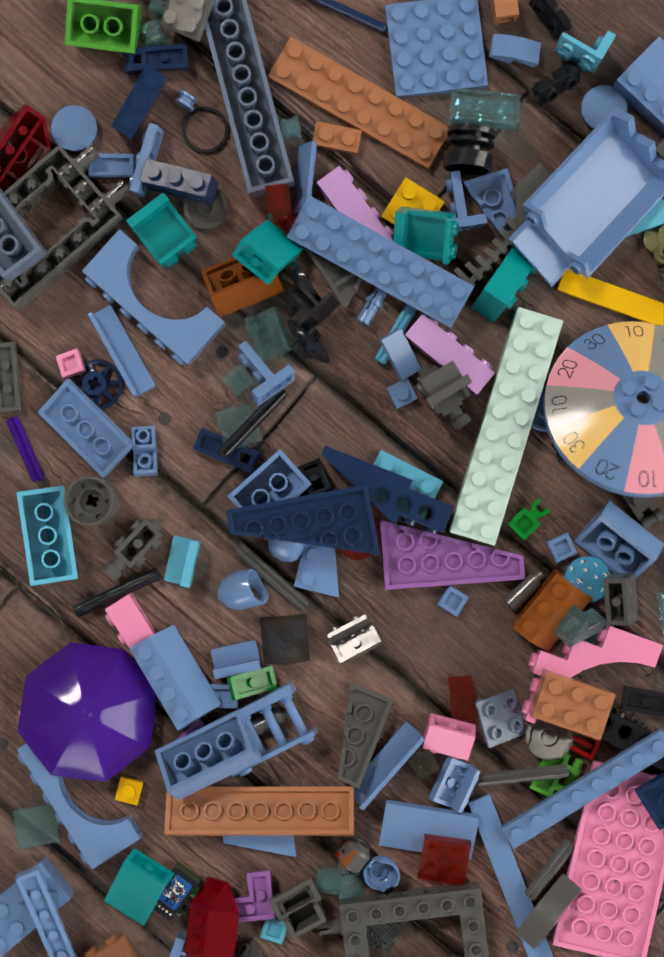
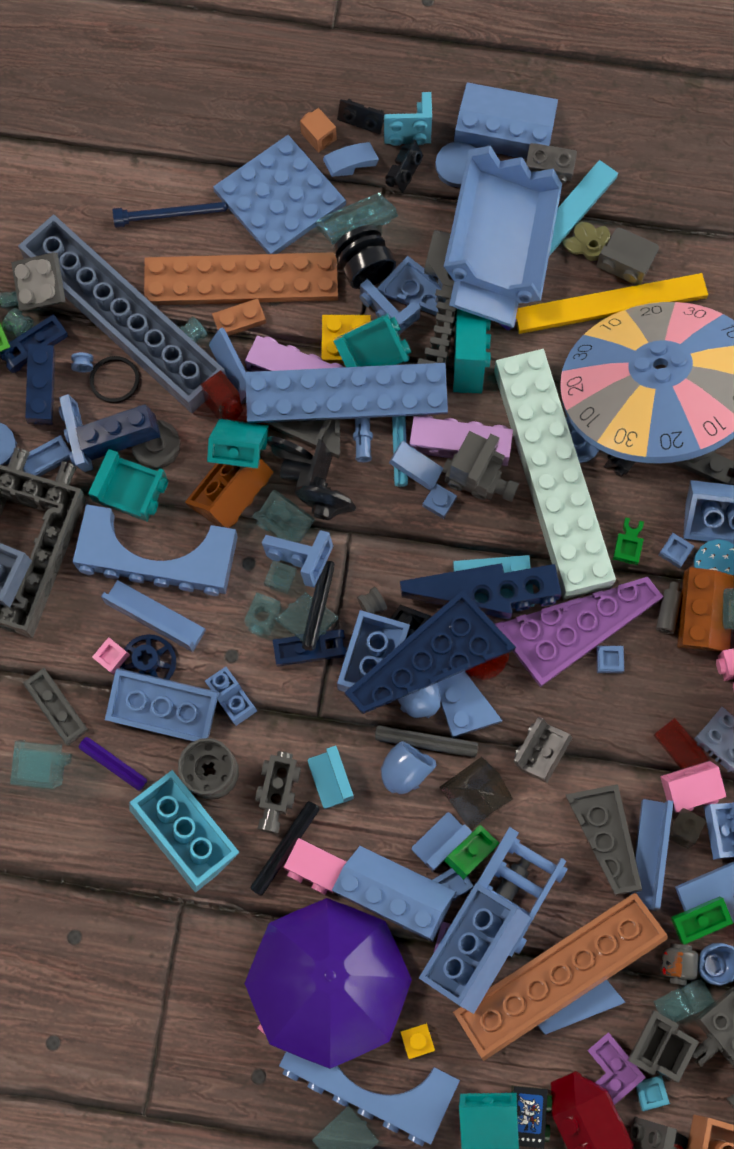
camera: 30 degrees left, 15 degrees down
(216, 402) = (262, 604): none -> clear light blue brick
(296, 444) = (372, 601): none -> dark grey wheel
(388, 837) = (701, 920): none -> green plate

